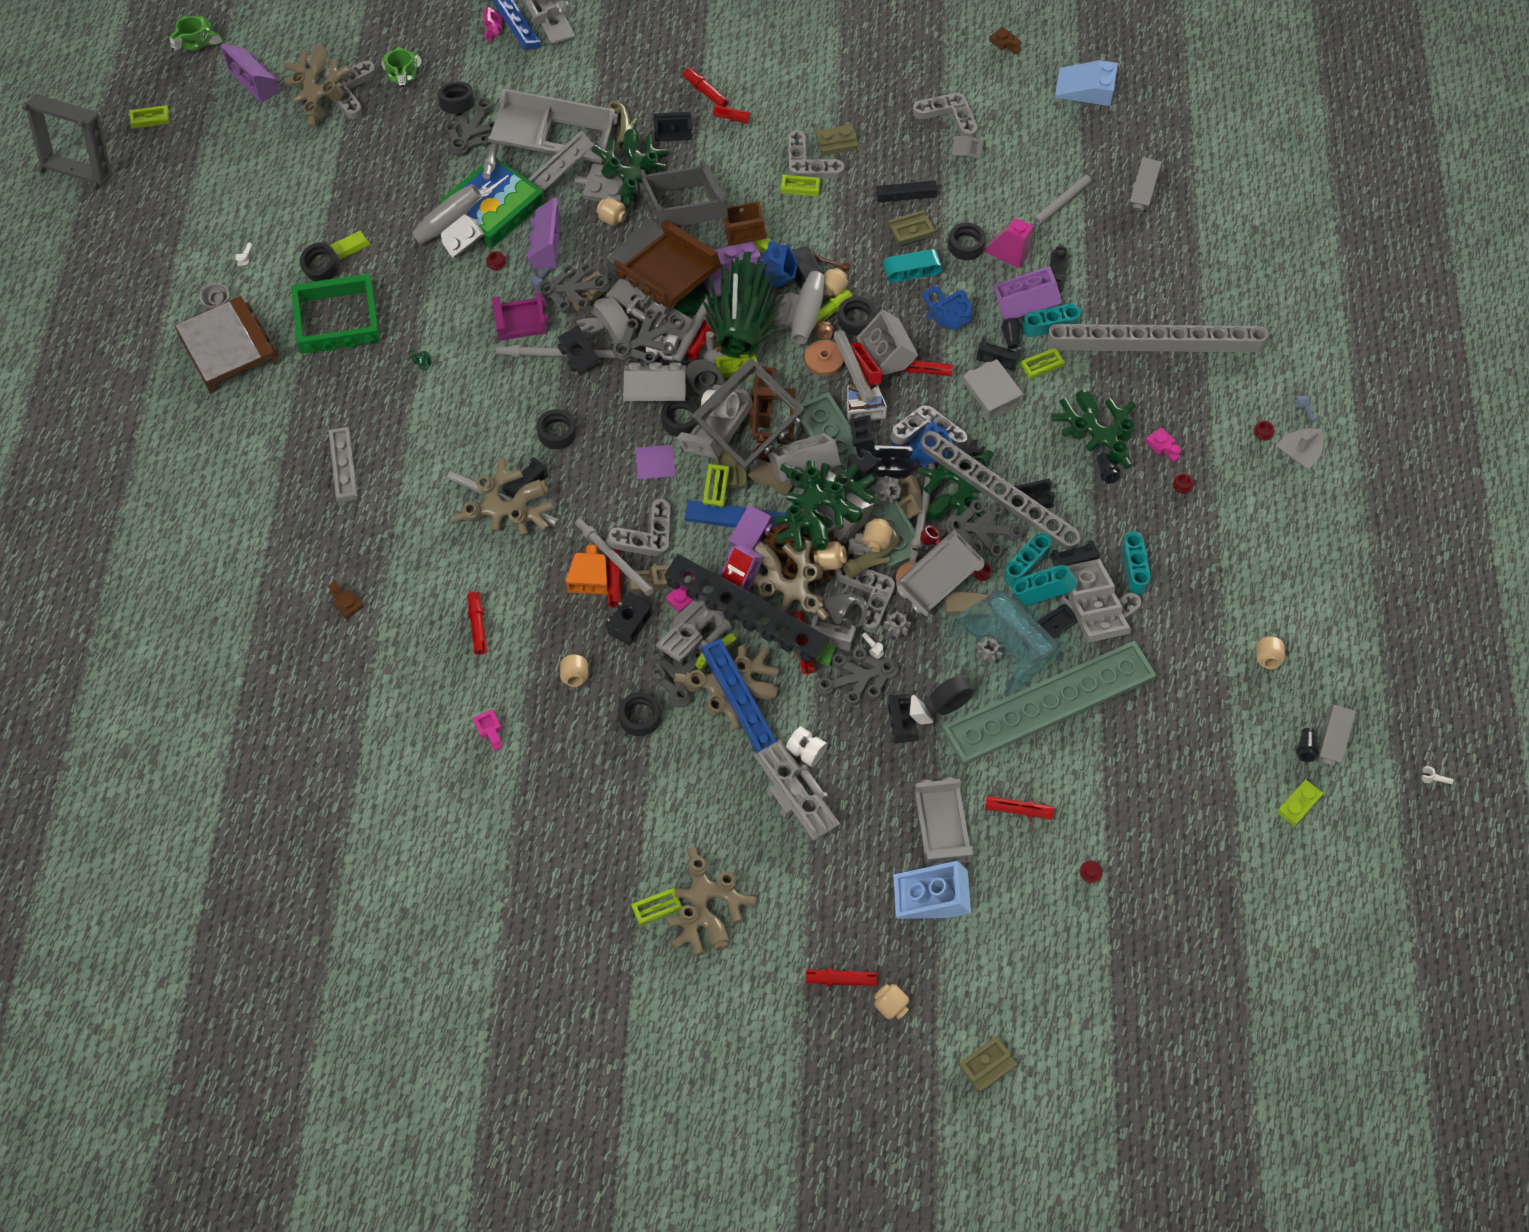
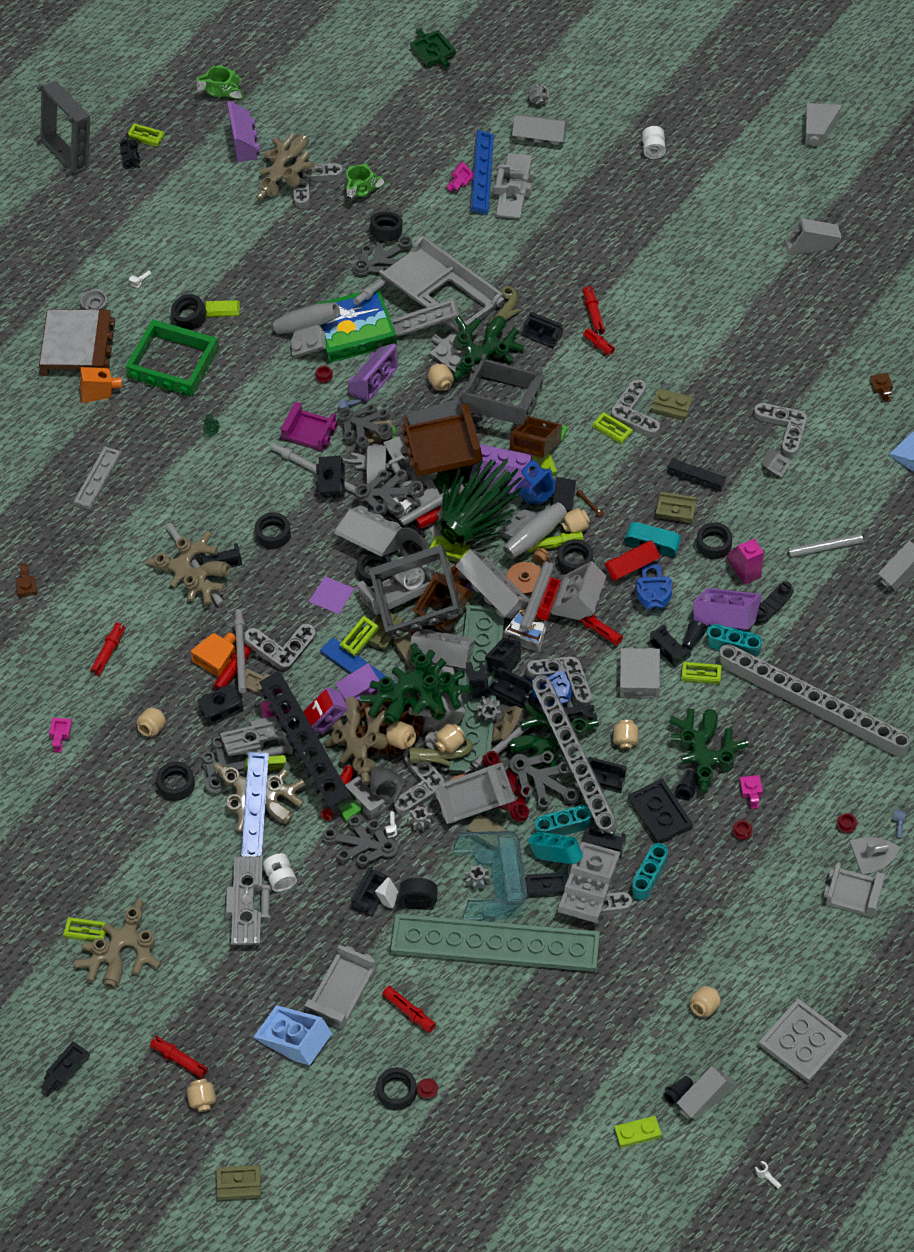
camera: 35 degrees right, 5 degrees down
(148, 143) = (129, 152): none -> black hinge
(278, 373) = (97, 384): none -> orange torso
(738, 1053) = (64, 1068): none -> black hinge
(807, 375) = (492, 583): none -> light grey slope
(911, 292) = (632, 560): none -> red beam
(1021, 451) = (625, 734): none -> tan head
(1057, 903) = (401, 1103): none -> black tyre
(1102, 504) = (660, 811): none -> black plate
(1317, 486) = (853, 891): none -> light grey panel
(1375, 640) = (803, 1040): none -> light grey plate

